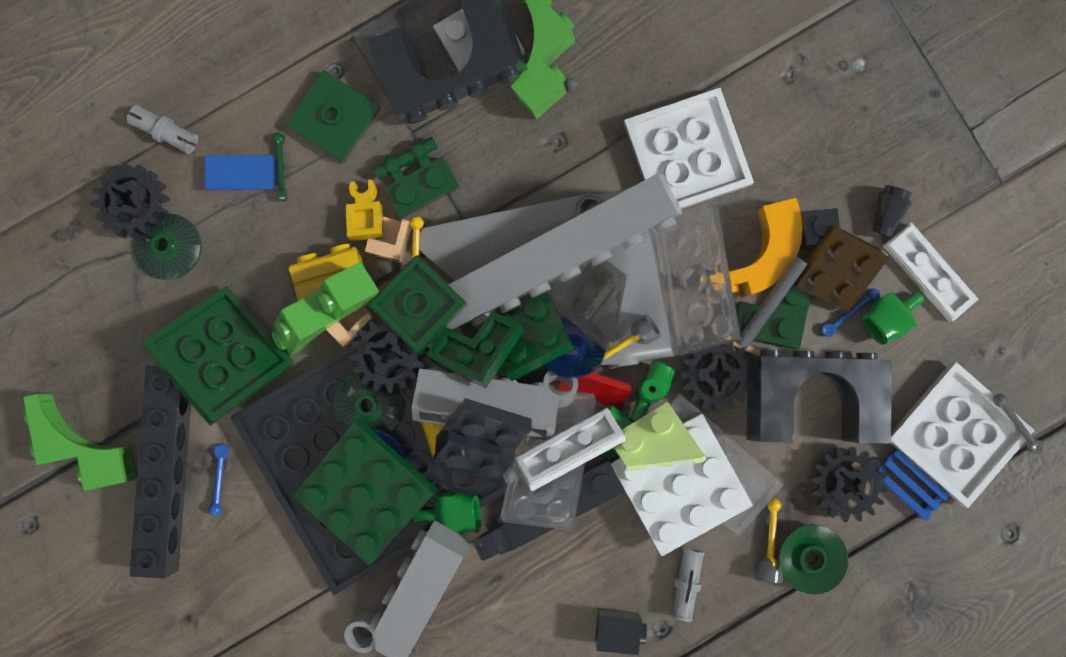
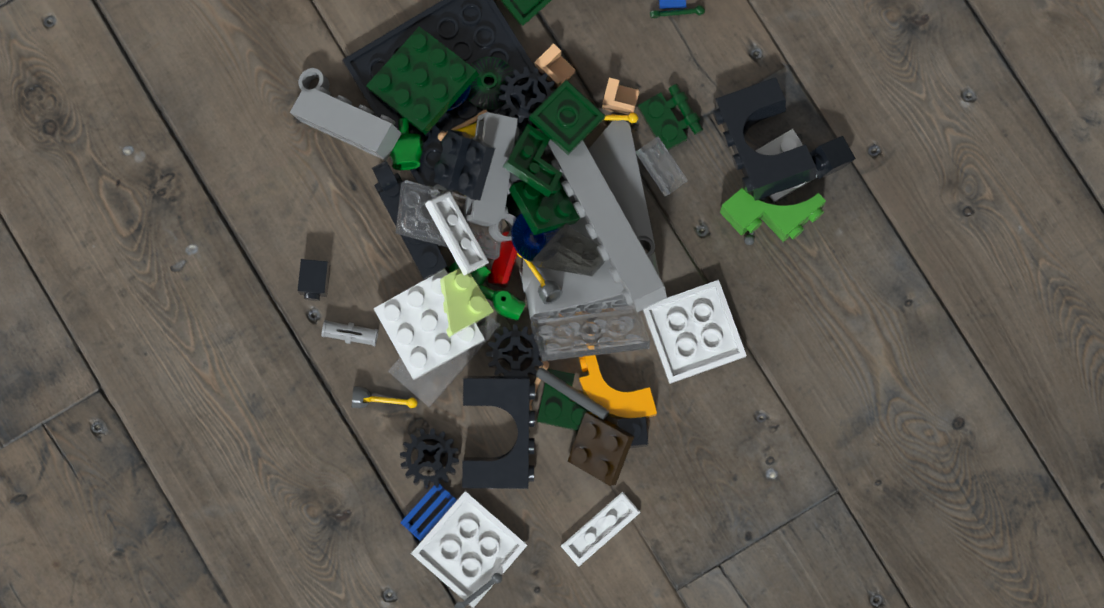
camera: 90 degrees right, 5 degrees down
(312, 271) = (590, 52): yellow brick -> none
(319, 311) = (560, 42): bright green arch -> none
(333, 116) = (718, 52): dark green plate -> none
(364, 217) = (638, 78): yellow plate -> none
(435, 465) = (466, 123): none -> light nougat hinge
(479, 188) = (661, 166): none -> clear plate
(829, 329) = (580, 481): blue hinge -> none
(829, 562) = (370, 416): dark green dish -> none
(891, 209) = (651, 495): black cone -> none
(891, 317) = (563, 494): green piece -> none

